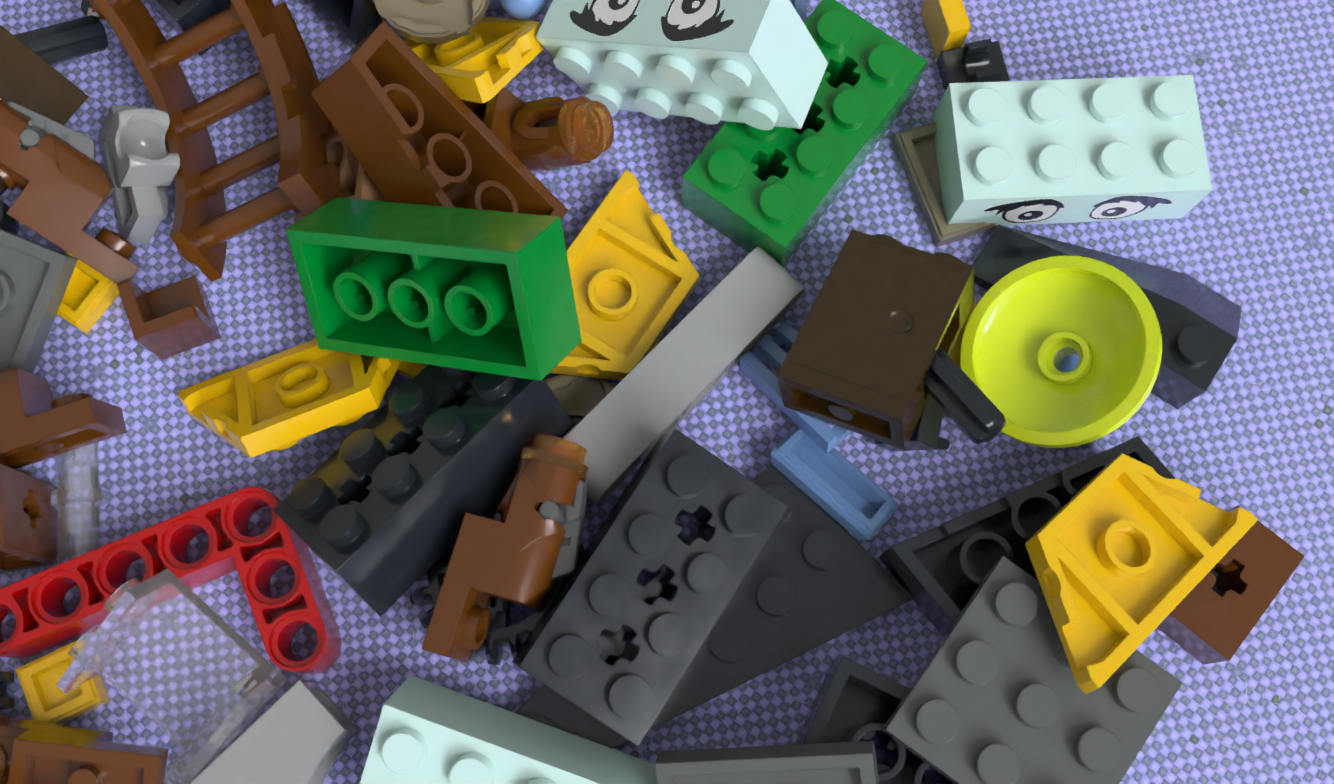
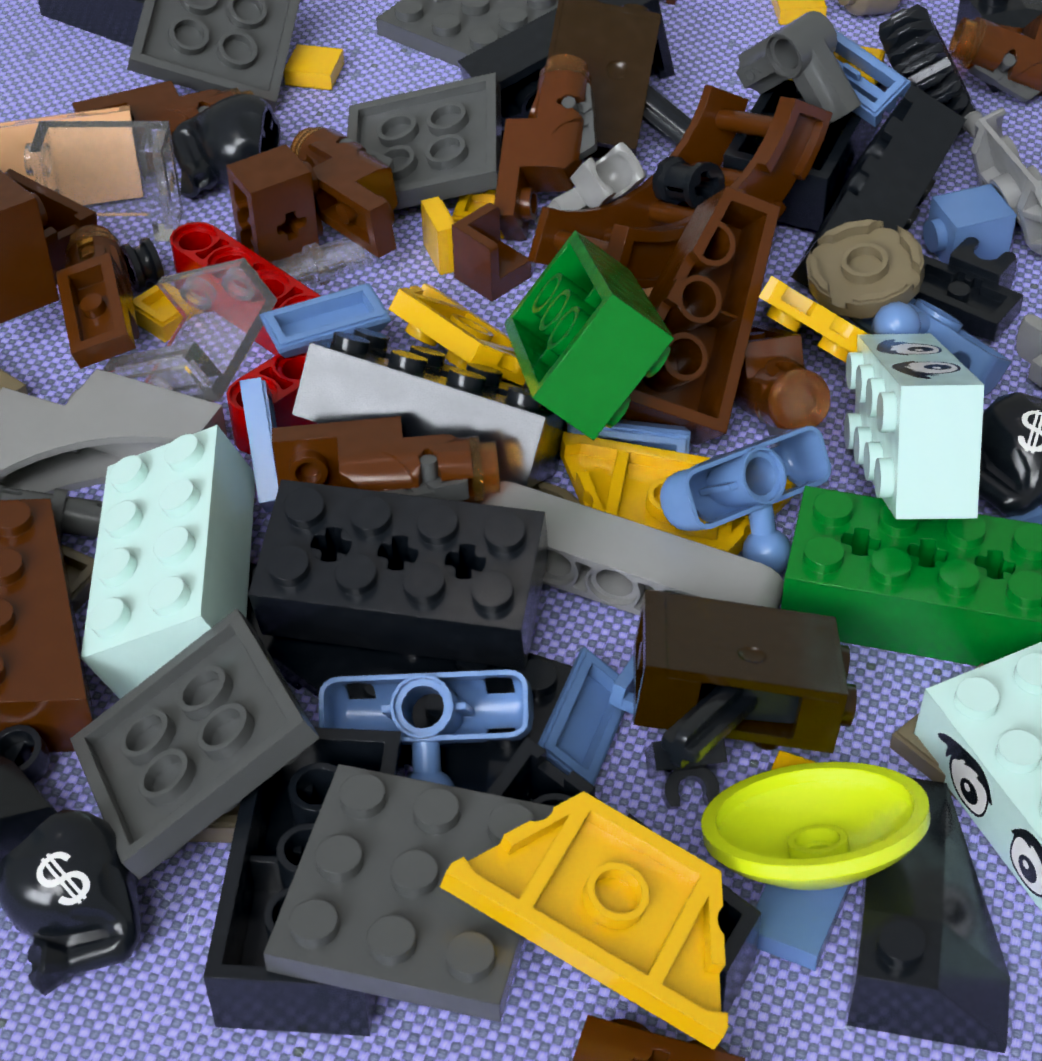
camera: 70 degrees right, 30 degrees down
(107, 351) = (438, 234): none -> yellow tile
(191, 74) = (687, 180): none -> black bush
(229, 529) = (318, 318): none -> medium blue tile
(381, 654) = (259, 422): none -> tile
(659, 228) = (749, 484): none -> medium blue piece
(832, 607) = (465, 716): none -> medium blue piece

